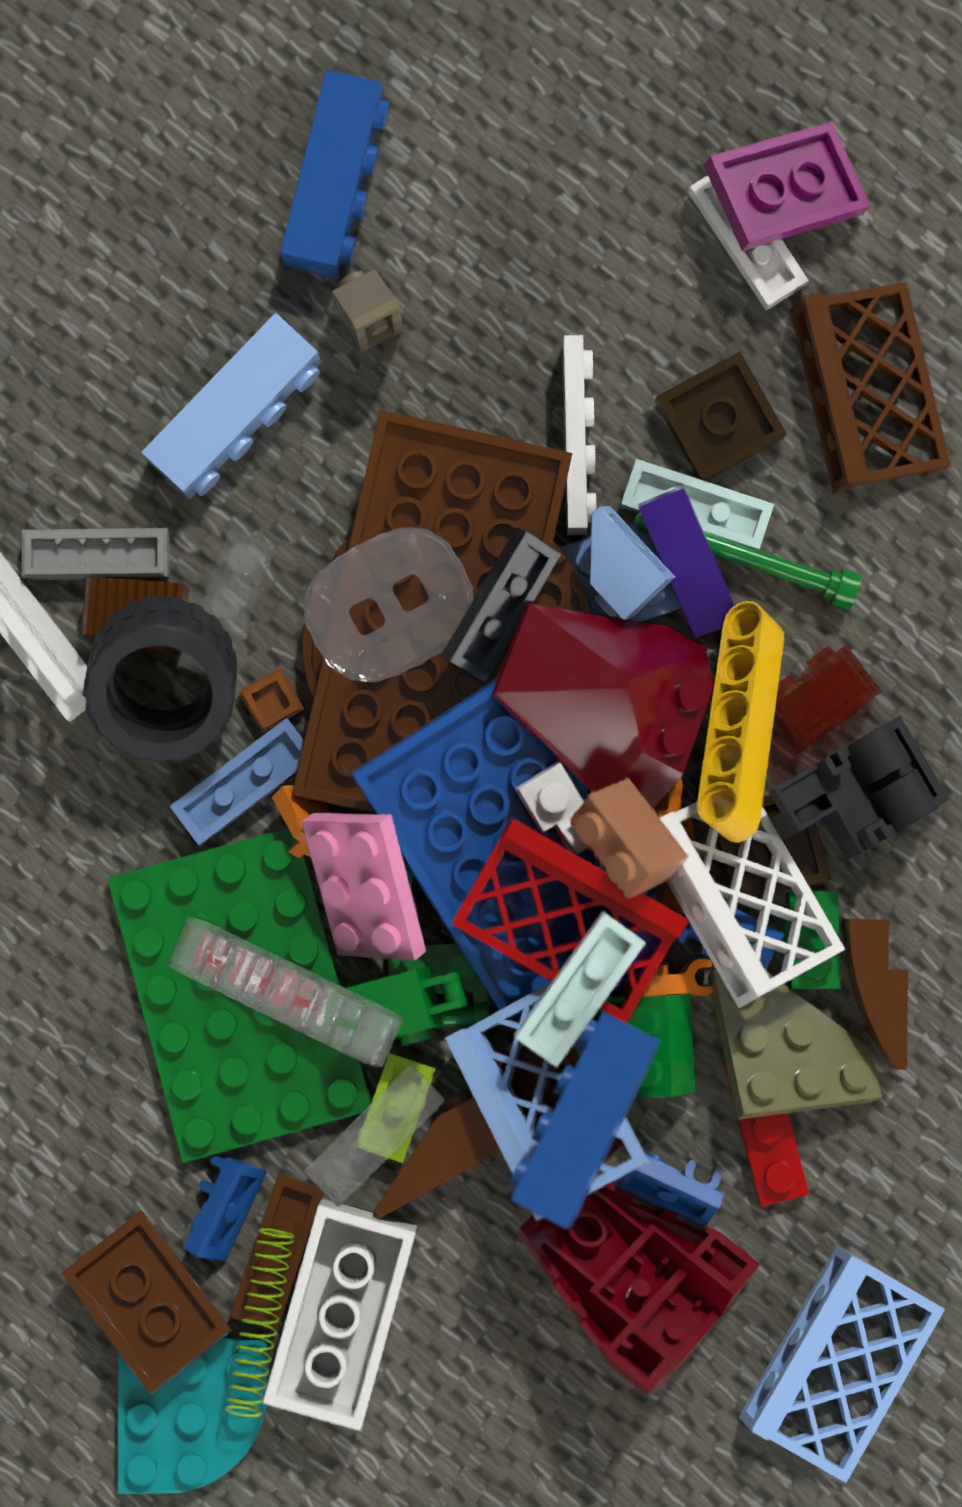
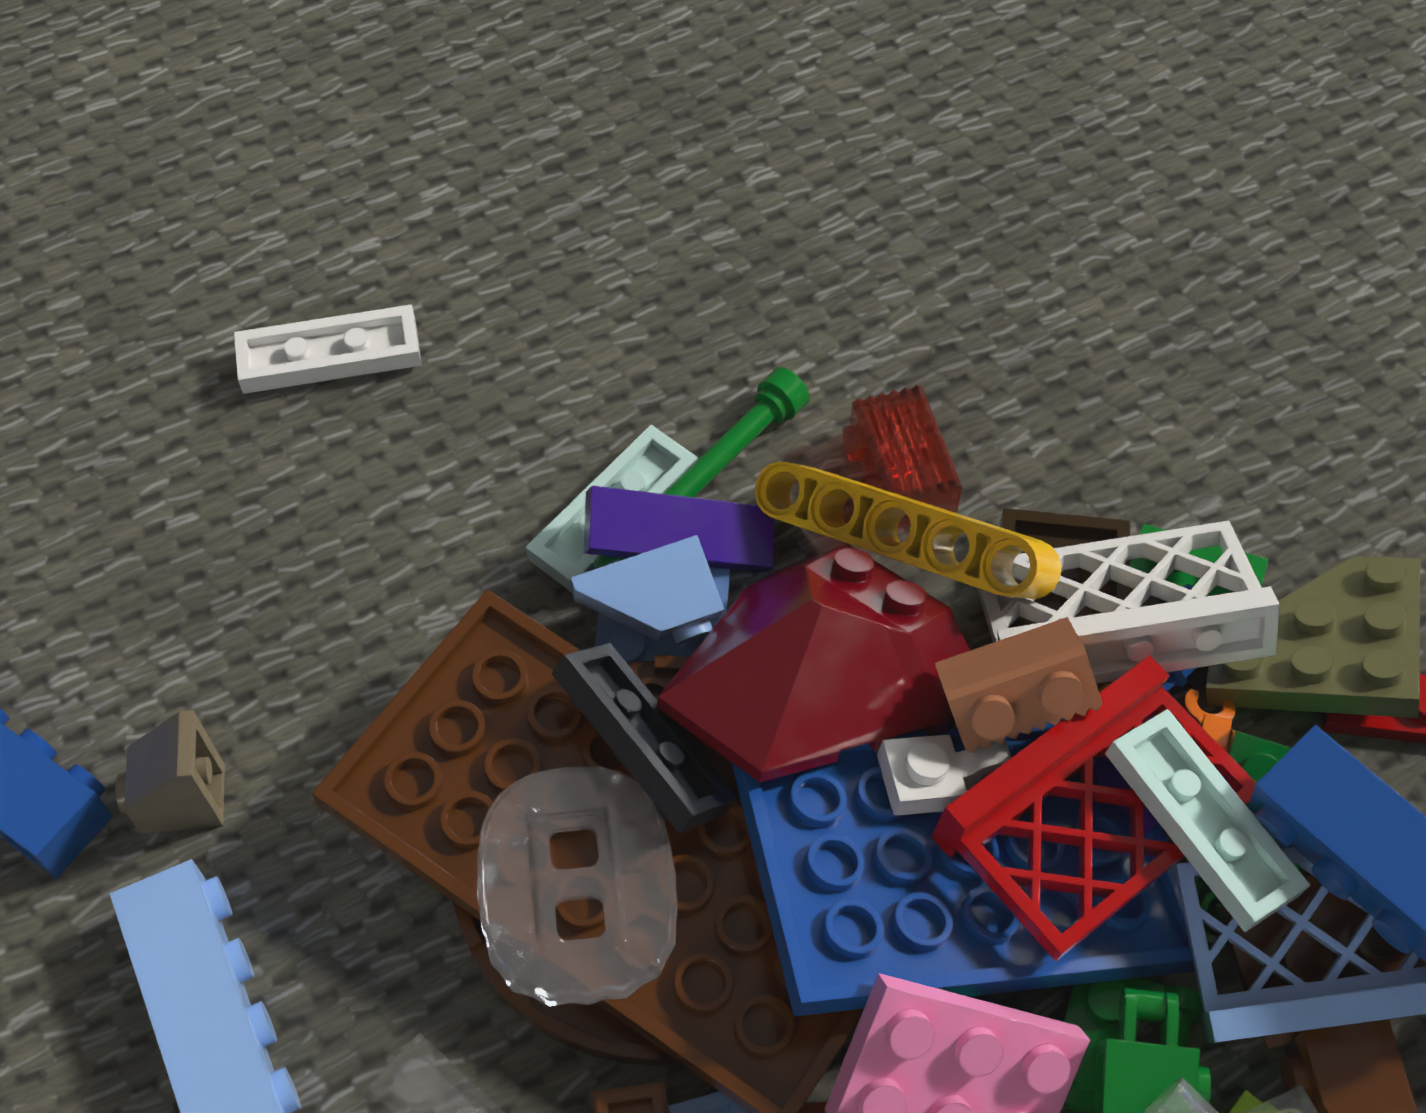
camera: 70 degrees left, 25 degrees down
(577, 416) = (440, 591): white plate -> none
(720, 417) = (520, 448): dark brown plate -> none
(786, 185) = (293, 285): magenta plate -> none
(830, 394) = (558, 327): reddish brown fence -> none
(862, 791) = (1038, 447): black plate -> none
(878, 990) = (1289, 517): reddish brown slope -> none

